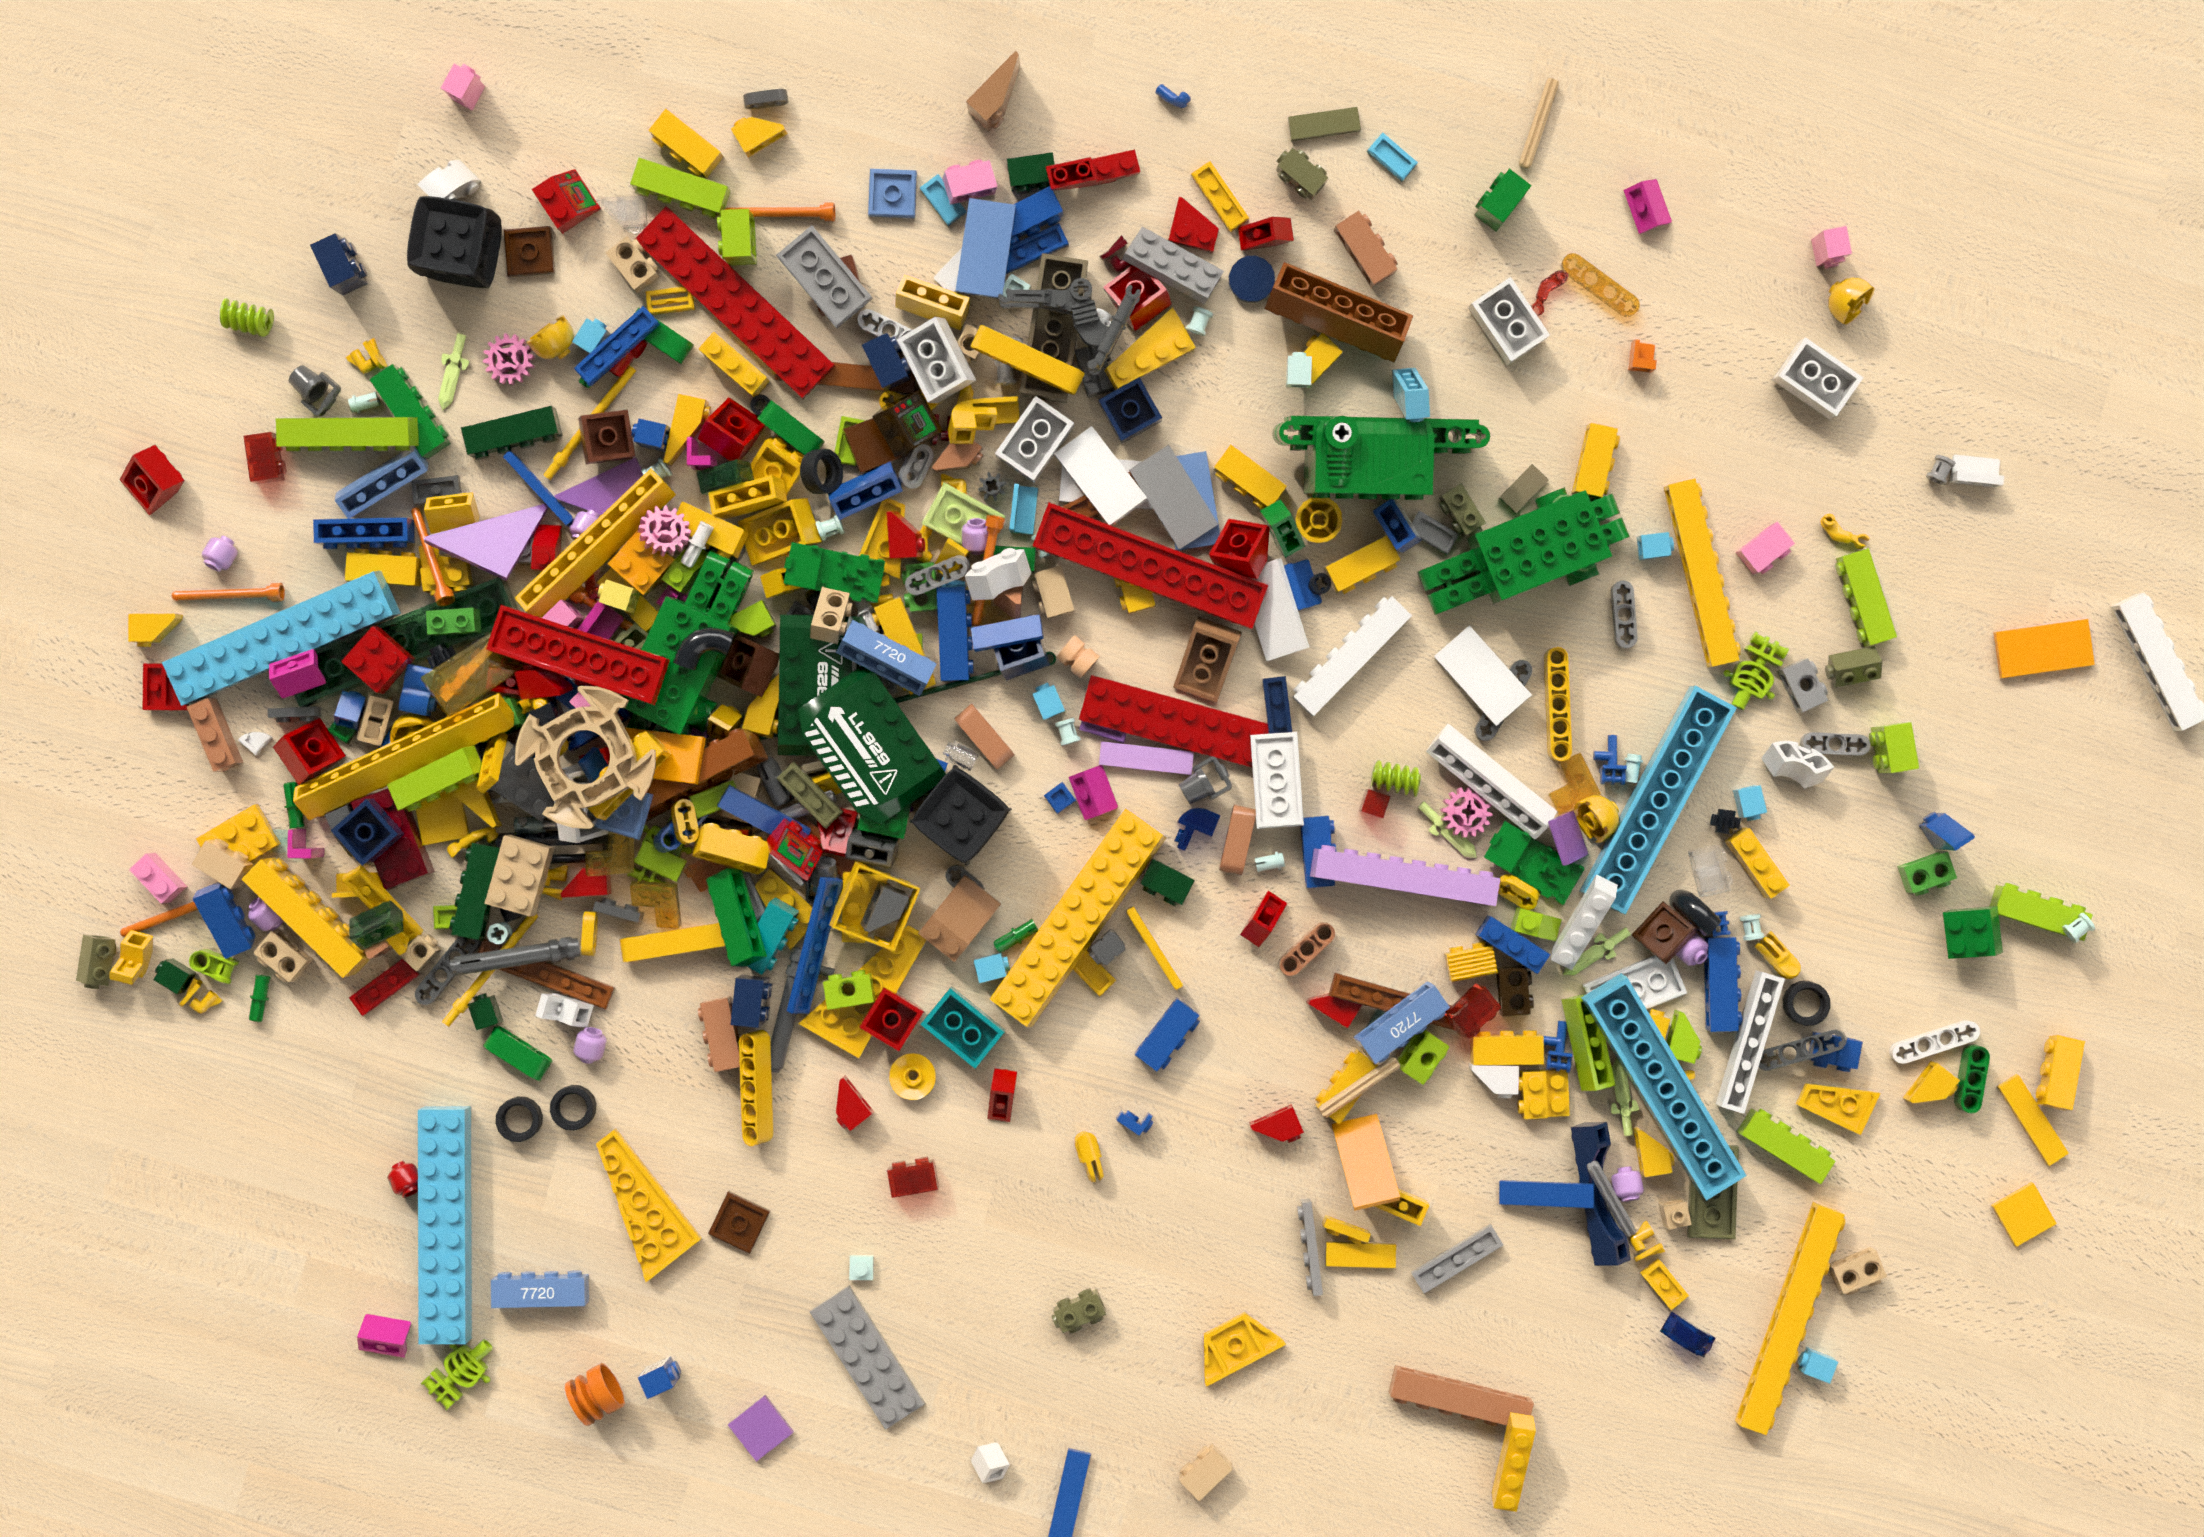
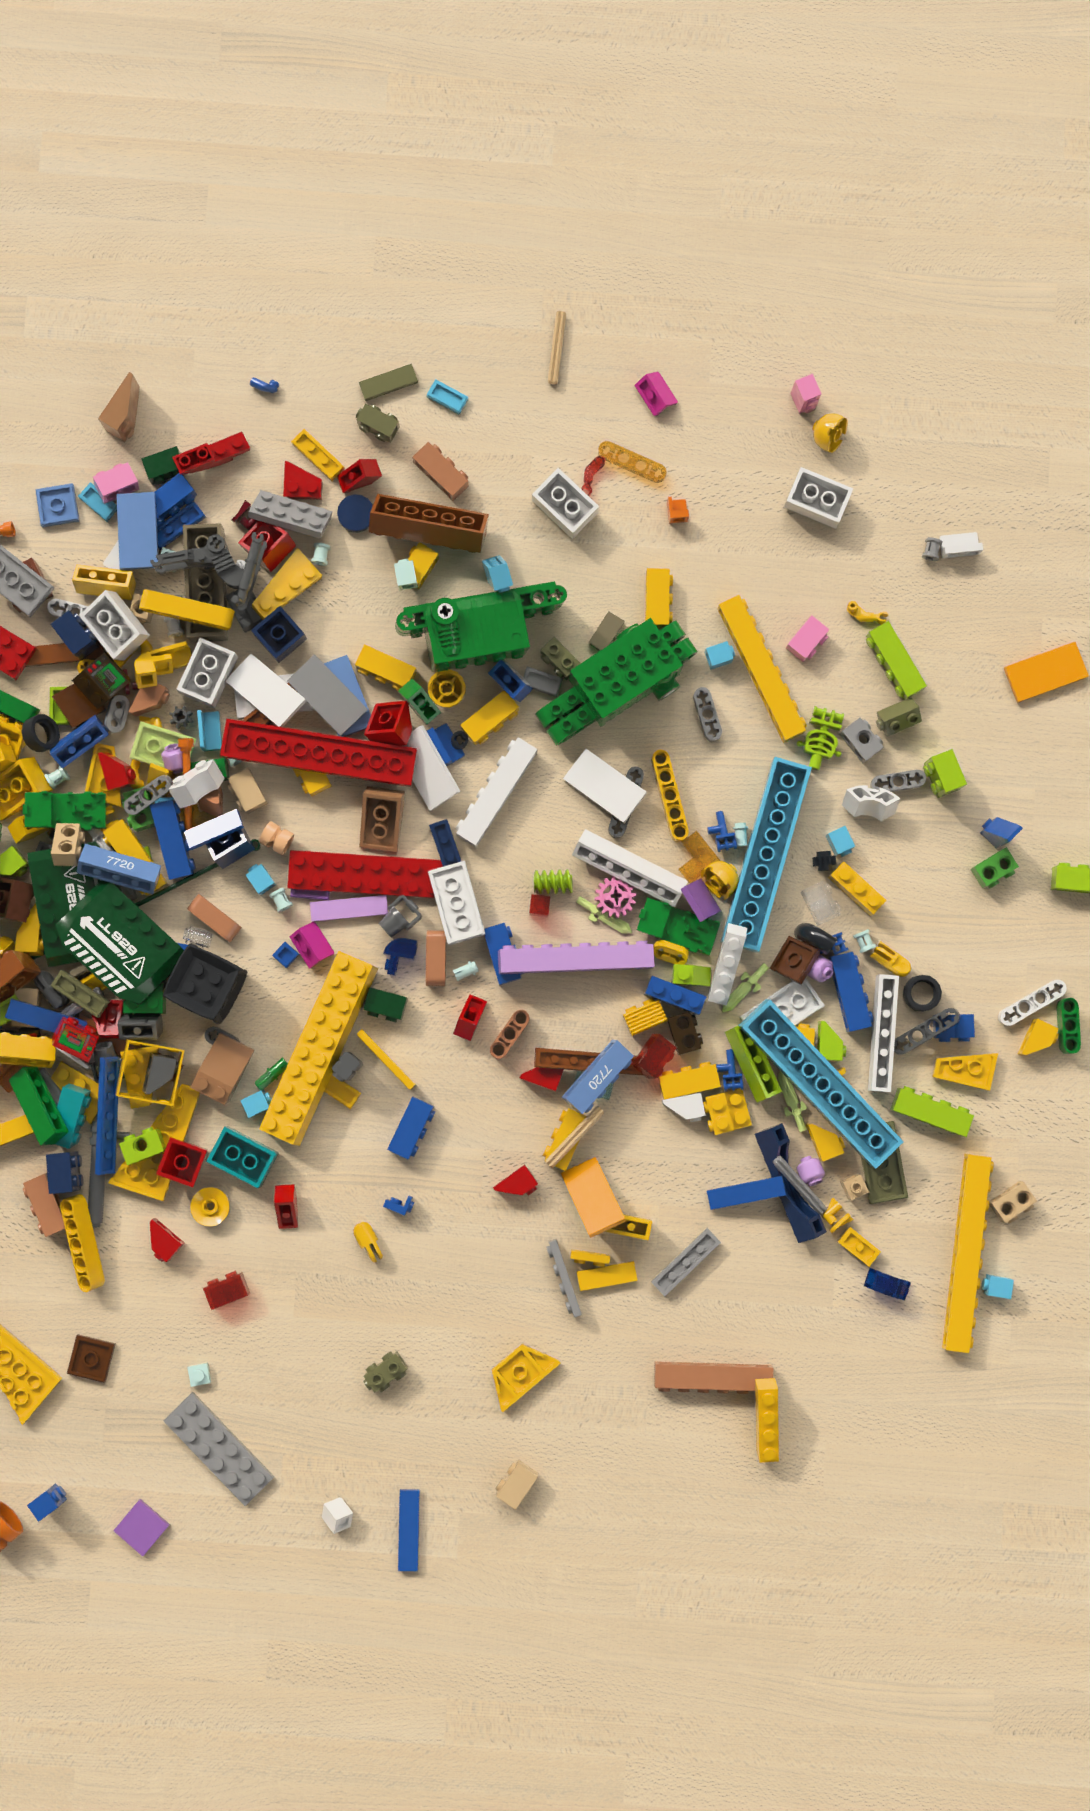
camera: 10 degrees left, 5 degrees down
(1411, 1056) = (618, 1091): lime brick -> none
(1505, 195) = (540, 410): green brick -> none
(1972, 932) = (1041, 907): green brick -> none

